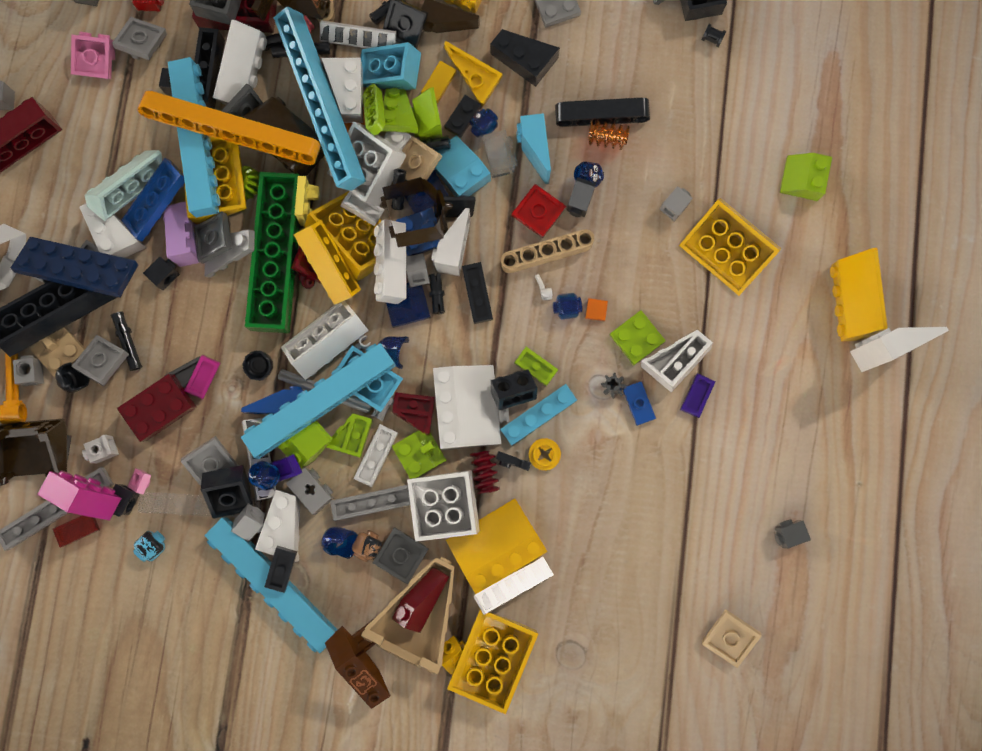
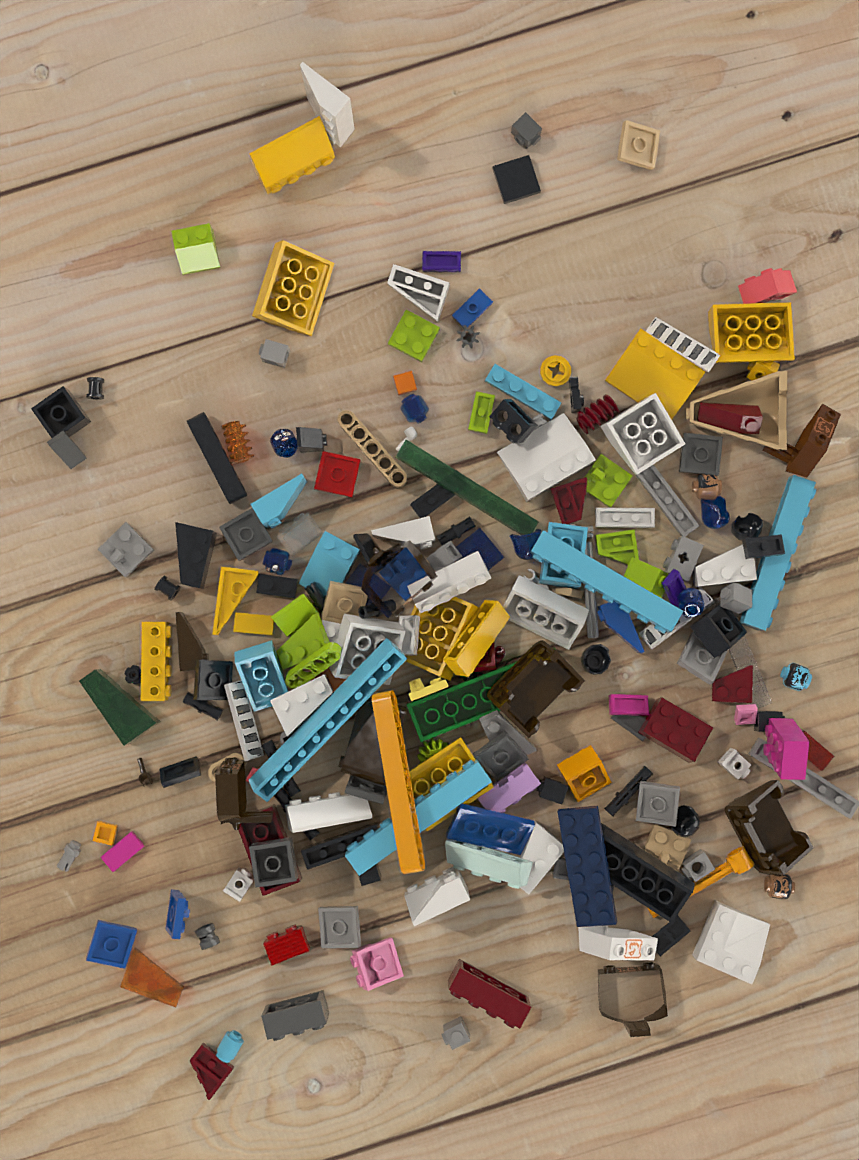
camera: 120 degrees left, 5 degrees up
(117, 125) = (436, 895): none -> white slope
(162, 307) = (584, 773): none -> light orange slope
(169, 482) = (734, 687): none -> dark red wing
(256, 287) = (533, 686): none -> dark brown windscreen
(310, 565) = (747, 526): none -> black hair
(330, 368) = (569, 592): none -> tan tile
(469, 318) = (466, 489): none -> clear green plate
(505, 21) = (167, 588): none -> black bush
(519, 103) = (245, 534): none -> dark grey plate
(532, 700) = (768, 286): none -> coral brick
(748, 503) = (516, 179): none -> black tile

